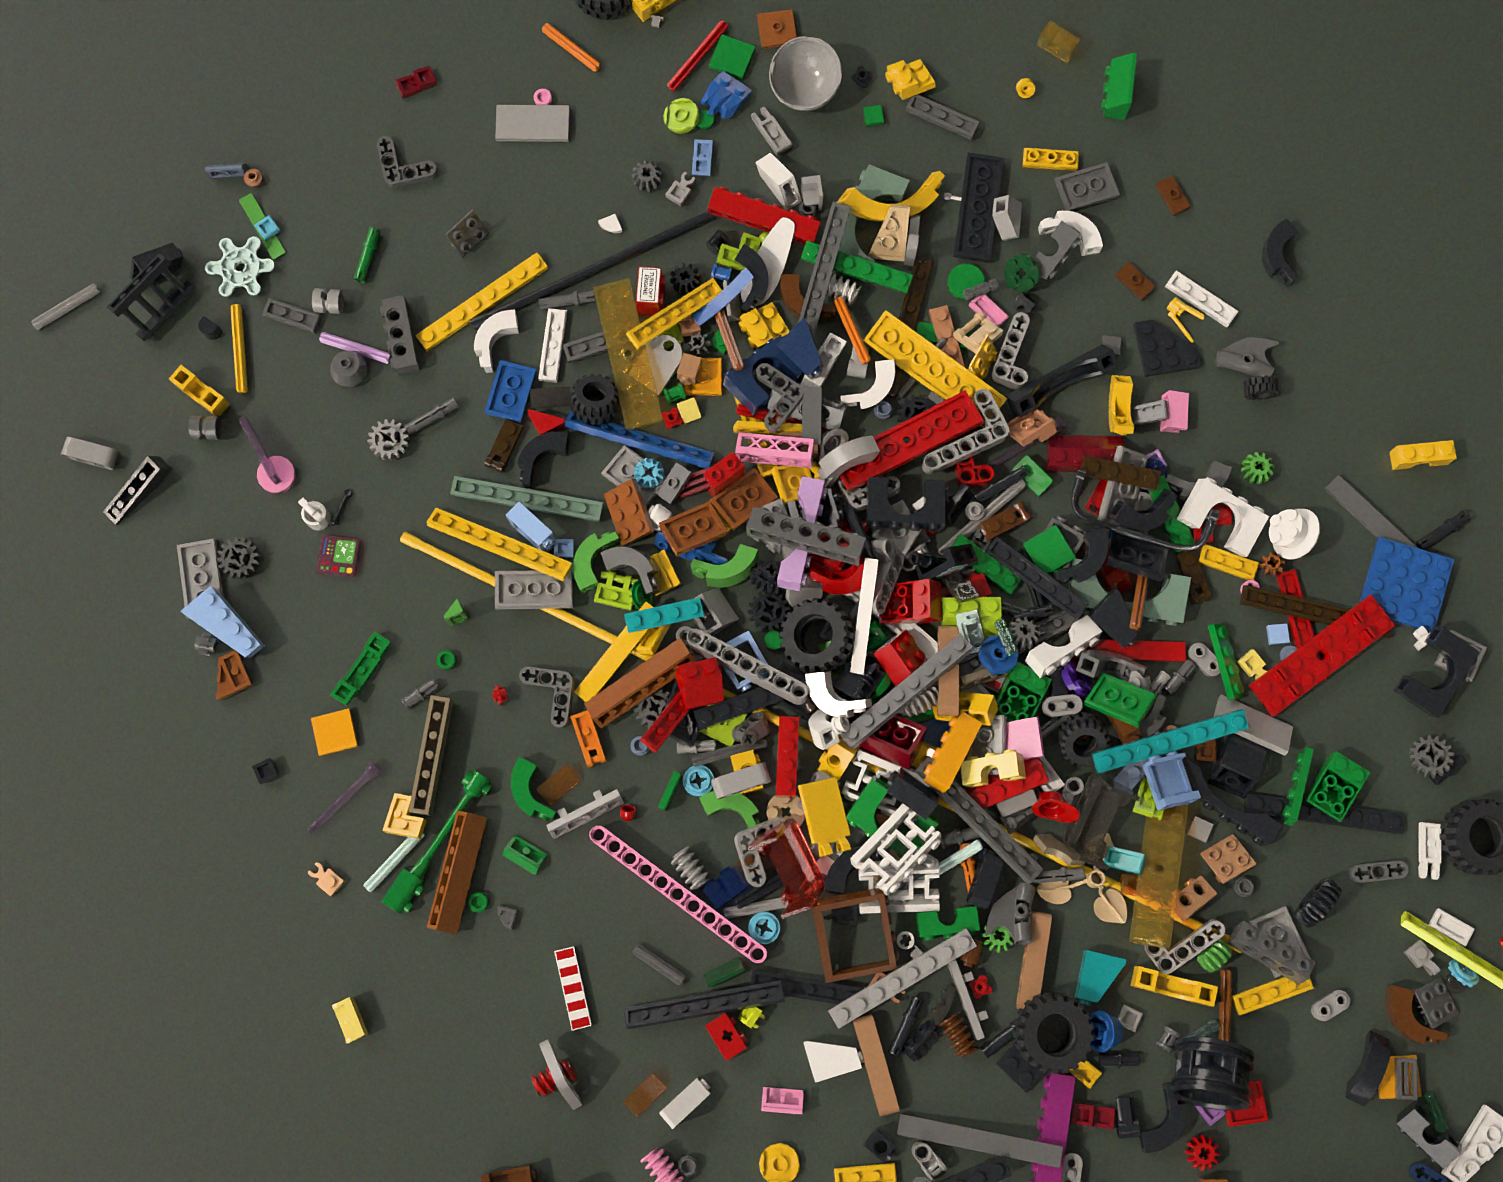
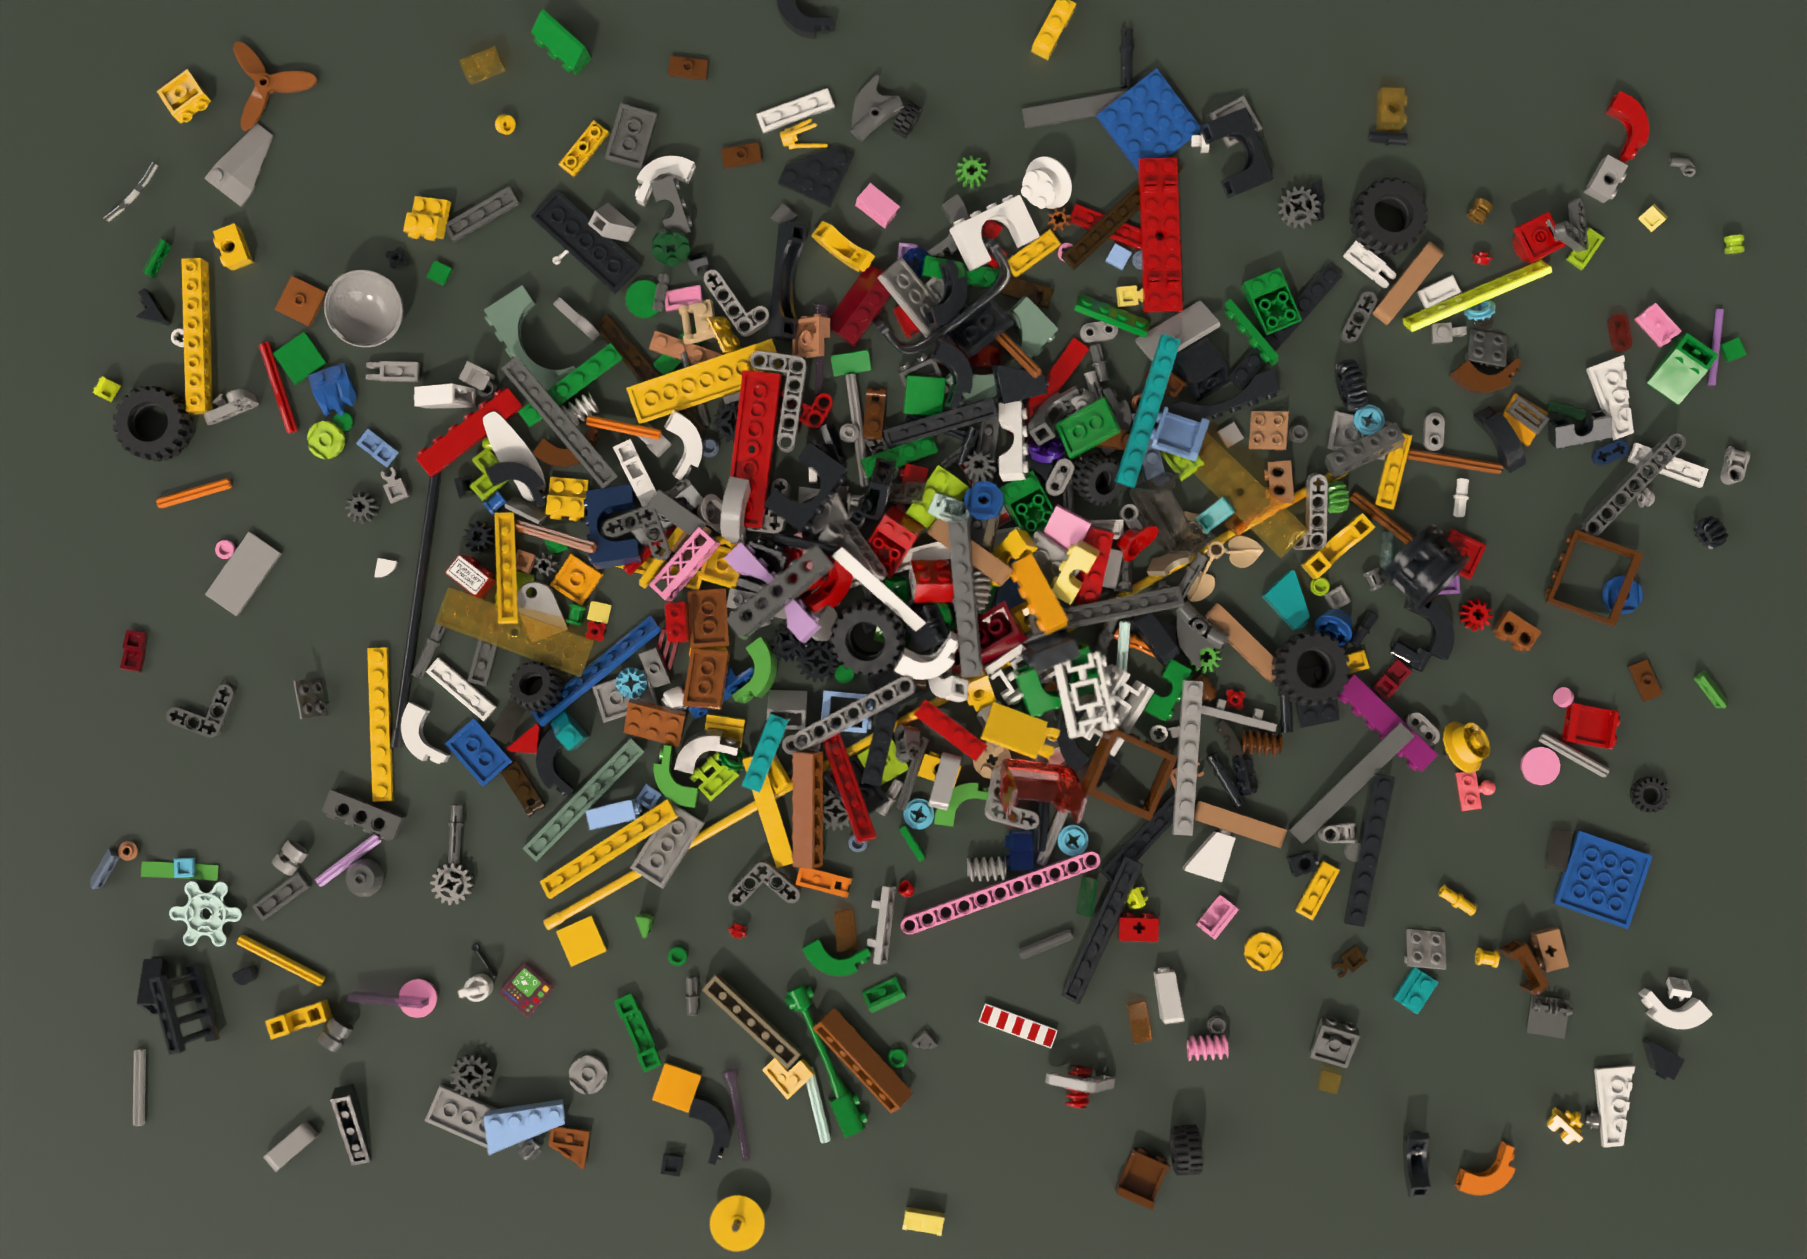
camera: 55 degrees left, 10 degrees up
(249, 857) = (737, 1223): none -> yellow piece
(299, 652) = (588, 1074): none -> light grey tile
(328, 880) = (798, 1169): light nougat plate -> none
(329, 780) = (712, 1114): none -> black arch
(369, 247) = (269, 796): green pin -> none
(408, 573) = (581, 940): none -> yellow tile
(575, 450) = (568, 731): none -> teal slope
(665, 34) = (239, 402): none -> light grey beam
(689, 369) = (563, 588): medium nougat brick -> none
(700, 683) = (843, 761): red slope -> none
(723, 298) = (520, 517): sticker -> none
(802, 349) = (614, 483): dark blue slope -> none
(840, 724) = (956, 671): white bush -> none
(876, 211) = (543, 313): yellow arch -> none
(892, 236) = (562, 334): tan wing -> none
(1001, 484) = (841, 395): black pin -> none
(1006, 637) = (974, 484): clear green axle -> none
(1121, 473) = (902, 293): dark brown arch -> none
(1128, 995) = (1319, 586): none -> lime plate
(1149, 412) = (864, 228): plate -> none
(1292, 1068) = (1461, 497): none -> white axle
(1307, 945) = (1377, 418): none -> medium azure gear
(1319, 1042) = (1455, 461): none -> dark orange axle
(1438, 894) = (1408, 283): none -> medium nougat beam

